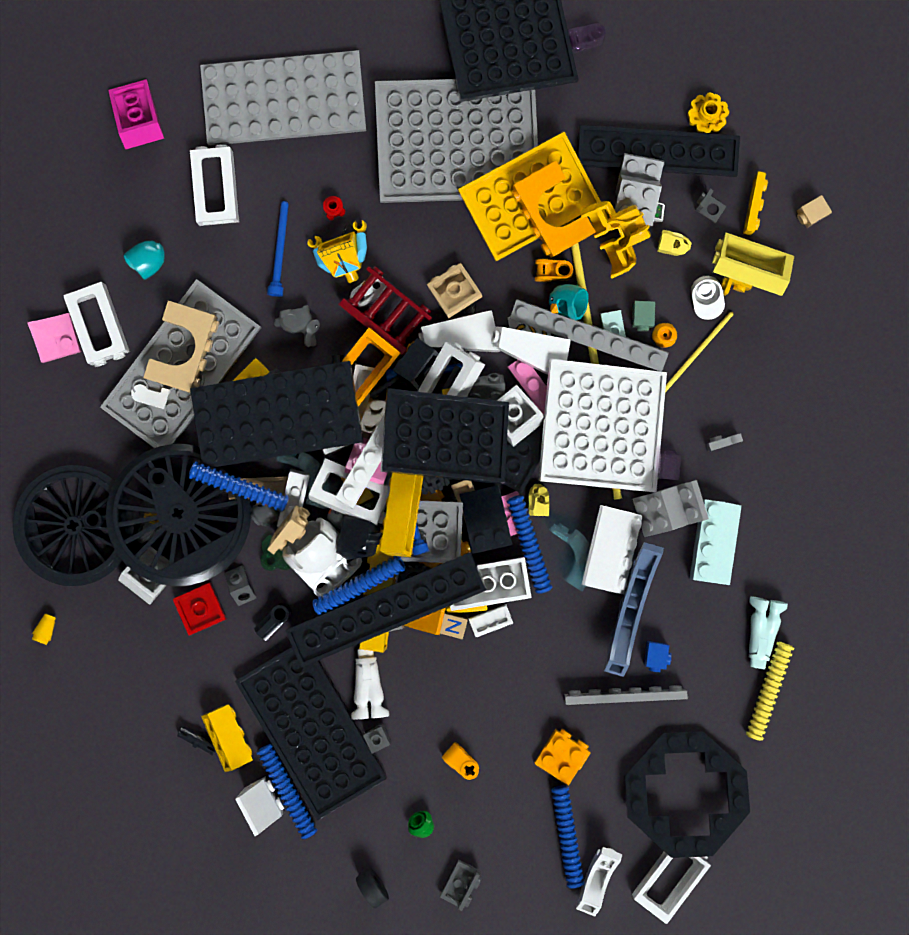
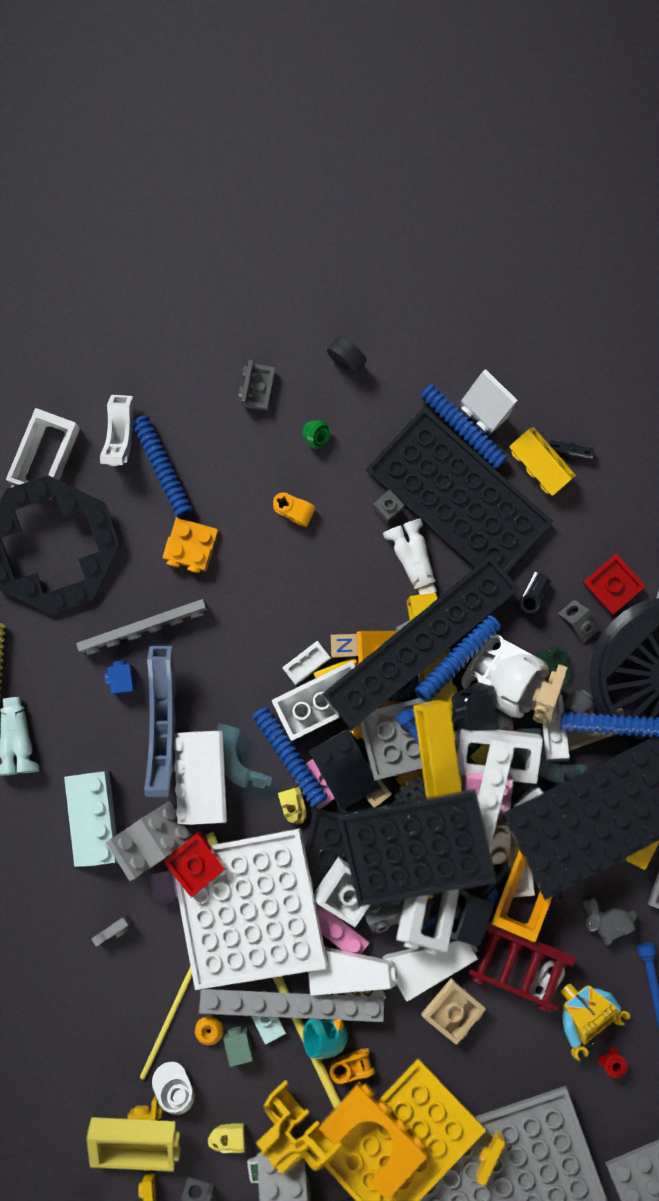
camera: 155 degrees right, 5 degrees down
(461, 166) = (489, 1158): none -> yellow plate
(637, 477) = (195, 864): none -> red plate

